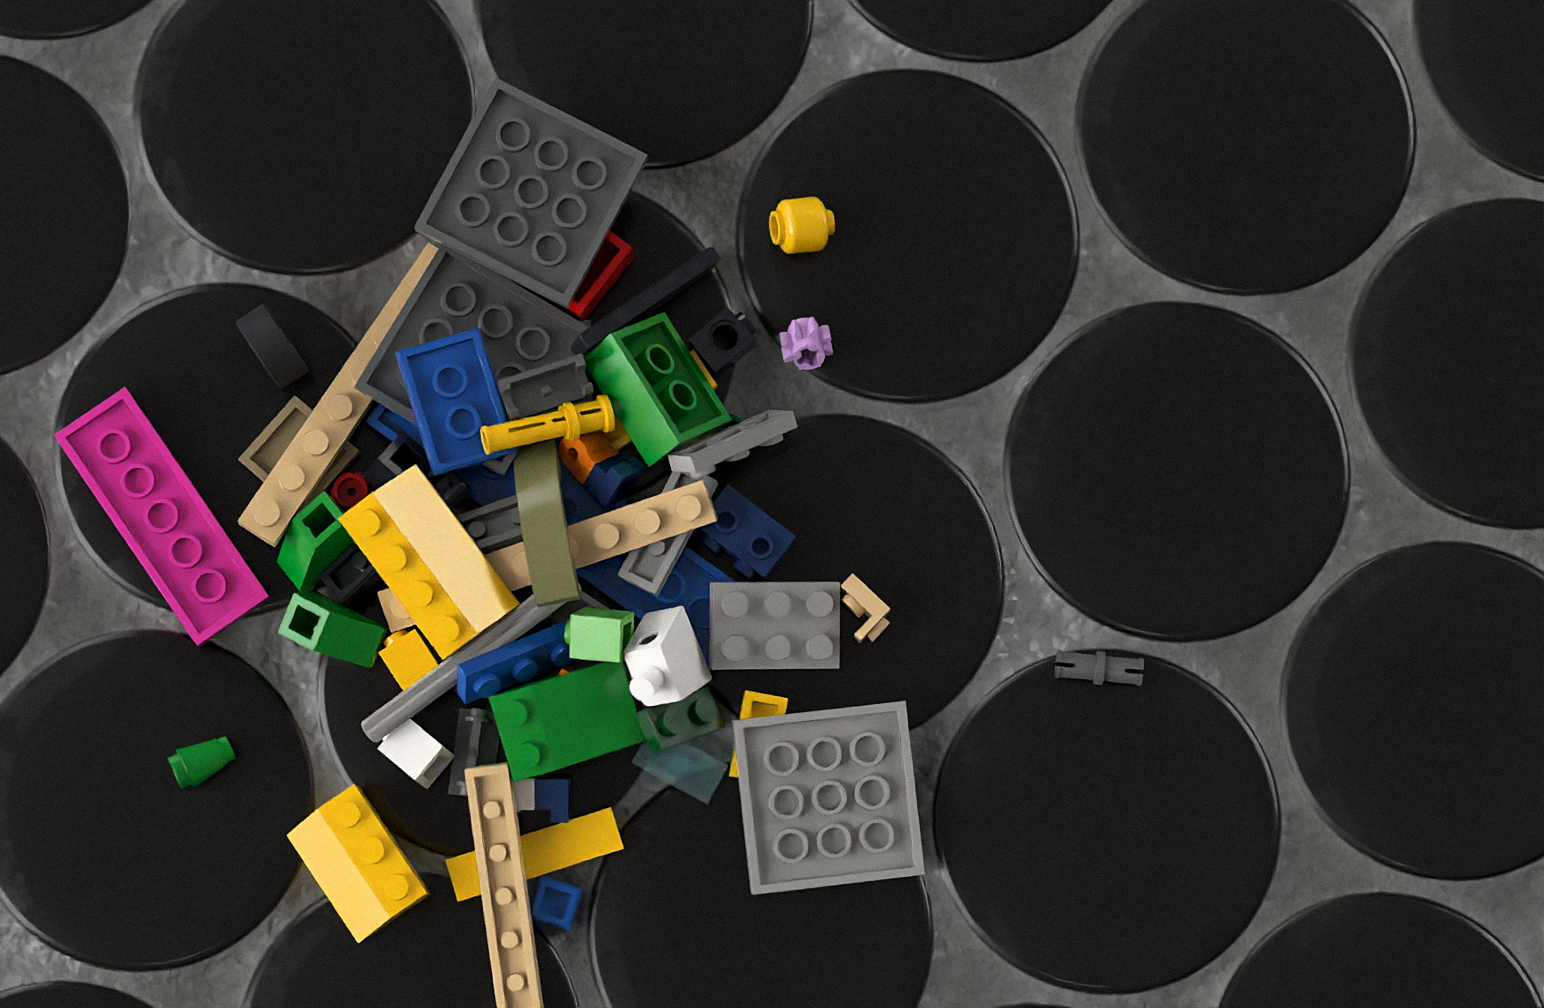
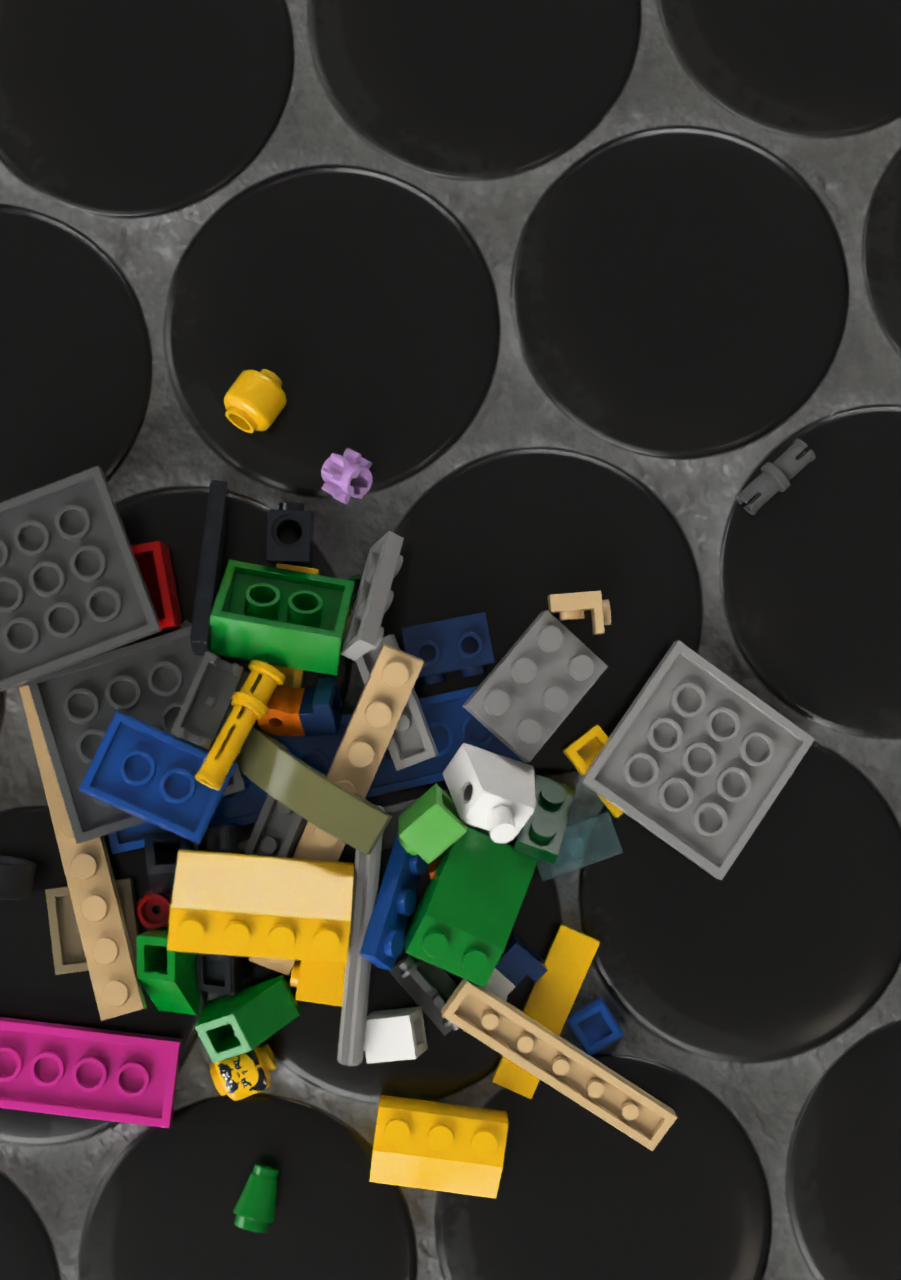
camera: 45 degrees left, 5 degrees up
(288, 664) = (244, 1073): none -> yellow head

